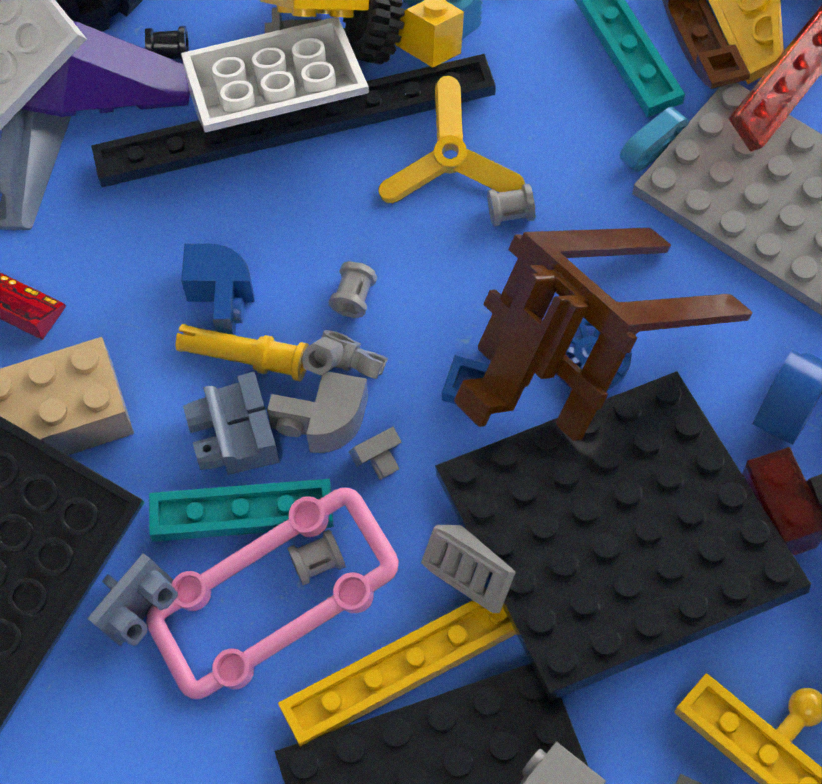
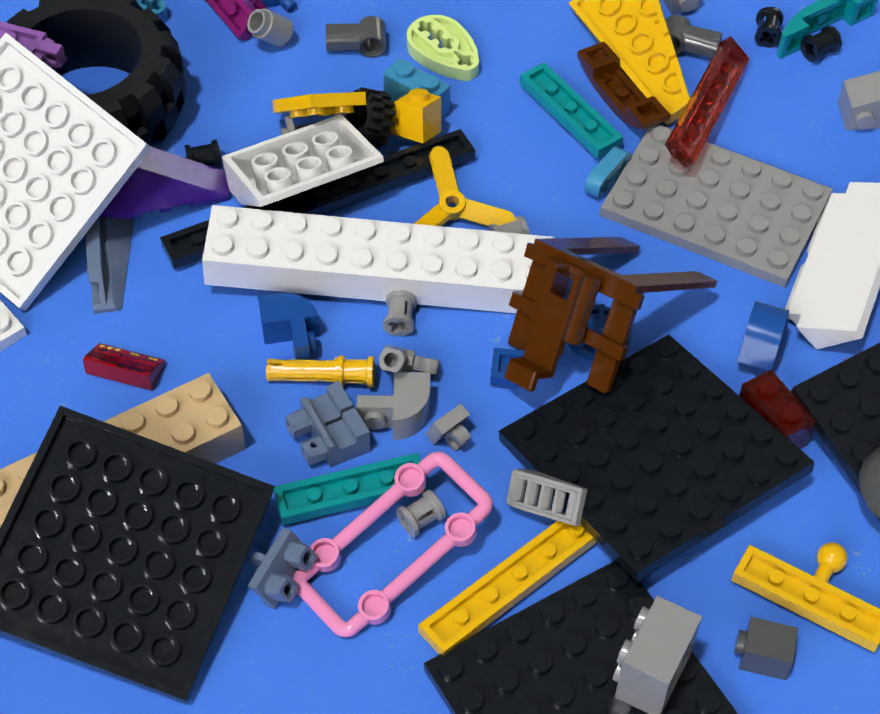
camera: 15 degrees left, 10 degrees down
(324, 213) = (364, 258): none -> white brick

